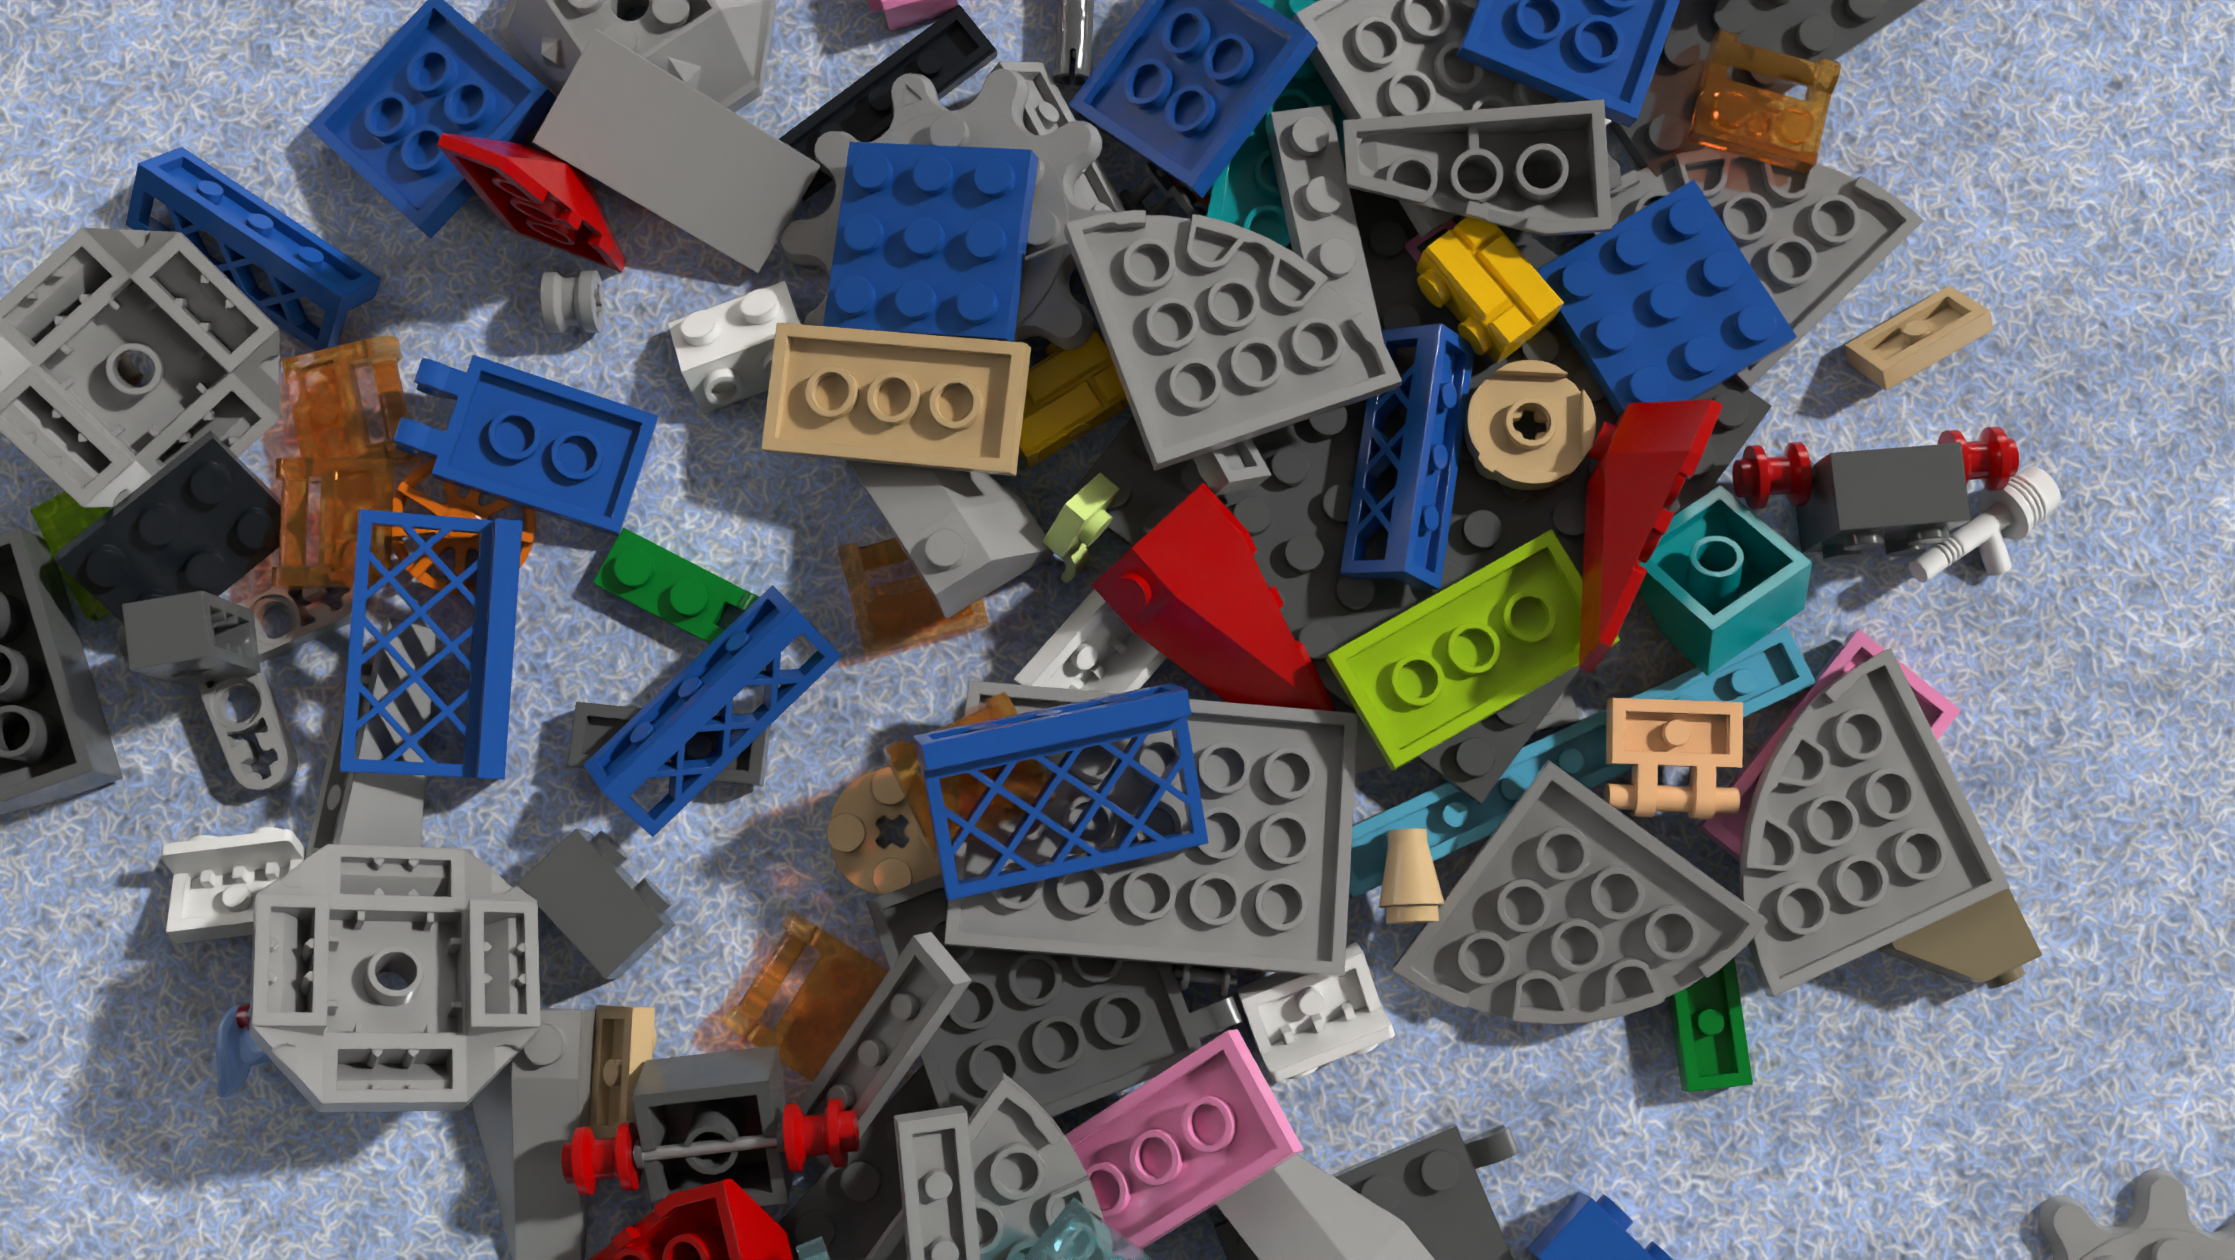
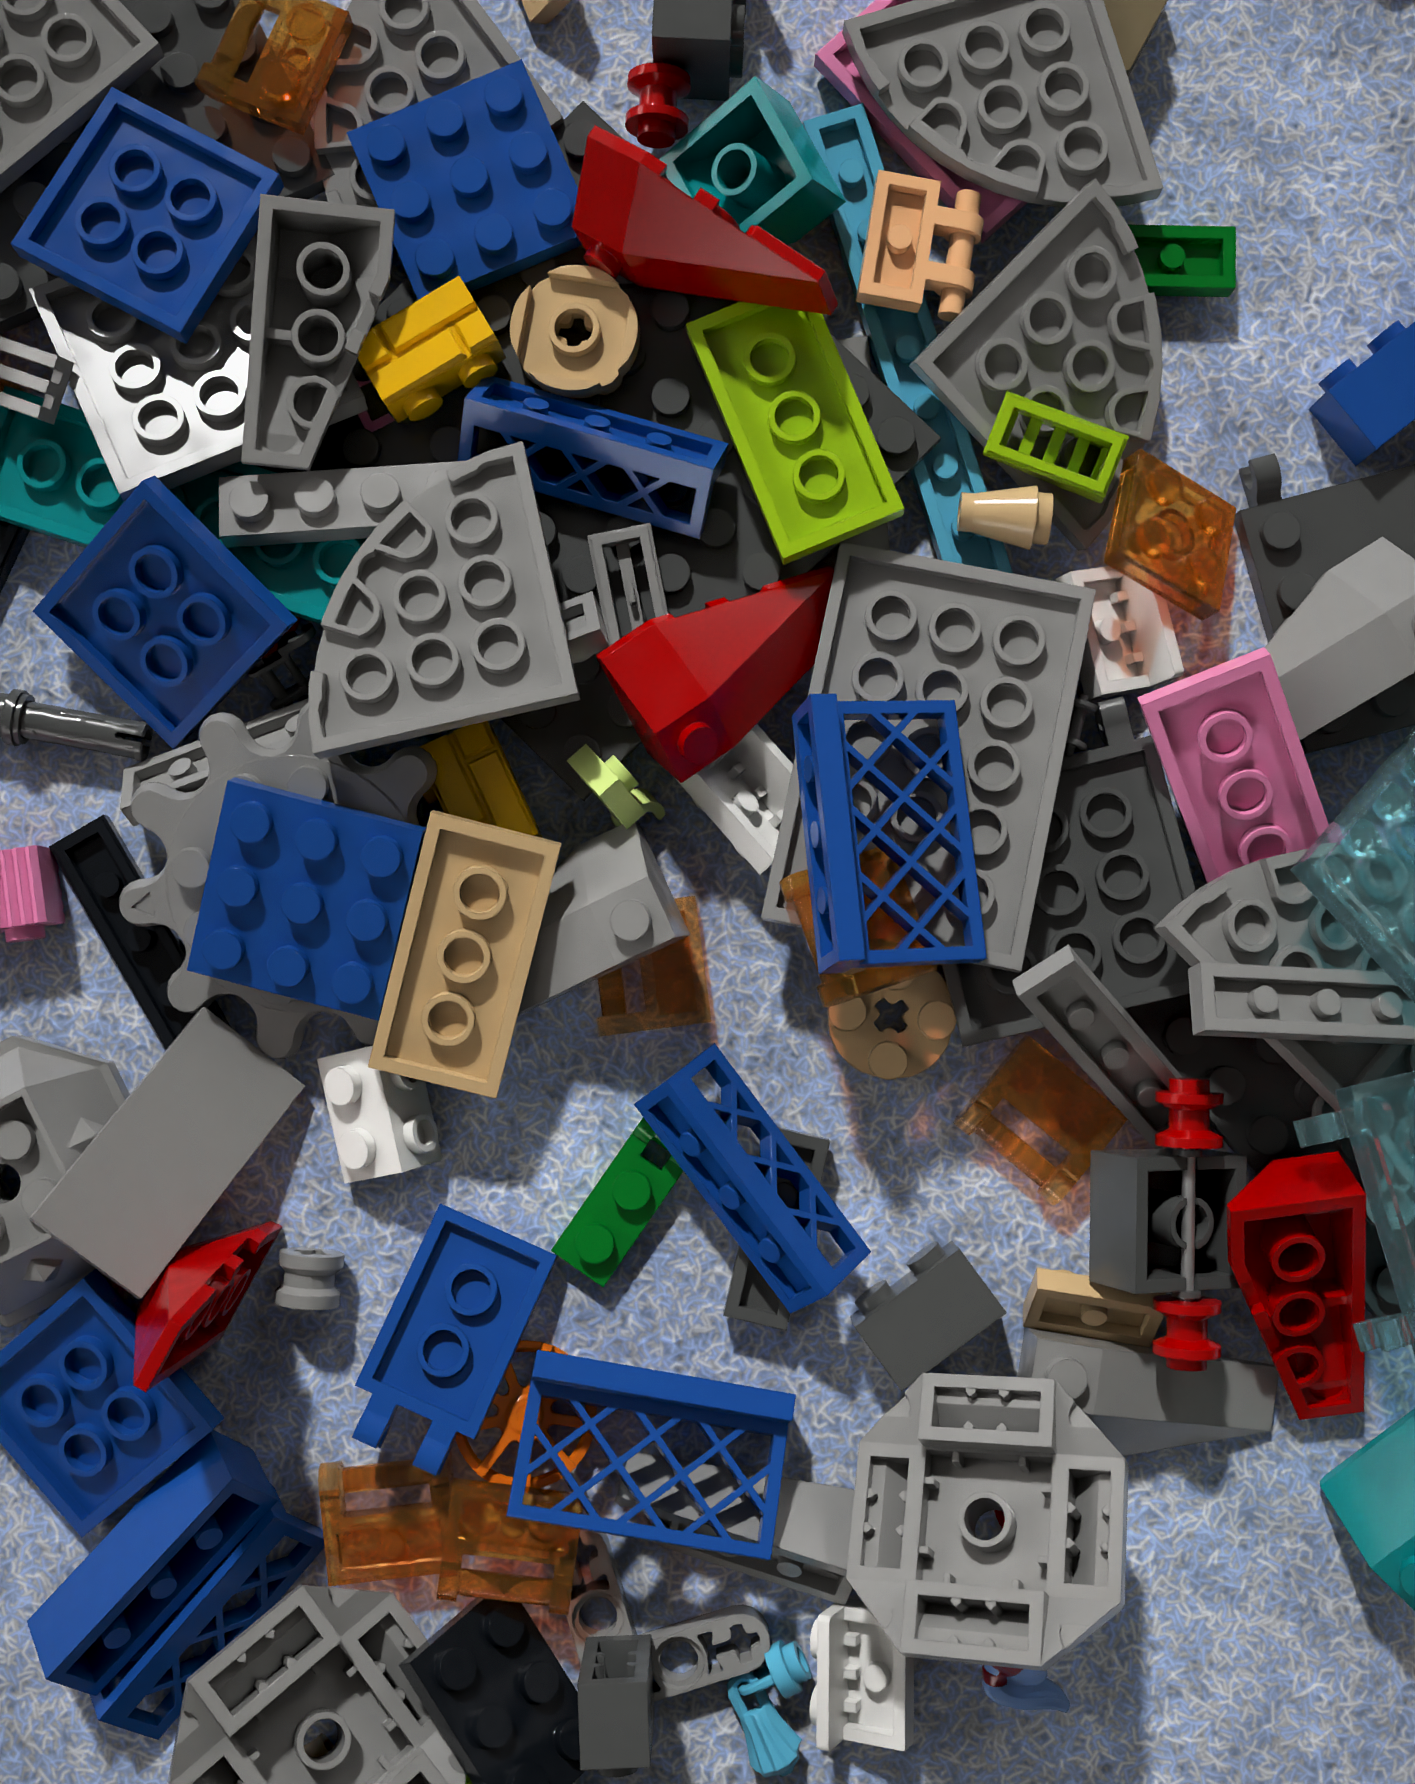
camera: 80 degrees left, 5 degrees up
(167, 802) = (769, 1739): none -> medium azure piece
(290, 192) = (150, 1563): none -> blue brick
(1329, 498) = (621, 539): none -> light grey tile
(1416, 1051) = (1170, 535): none -> clear orange plate
(1474, 973) = (1109, 441): none -> lime slope

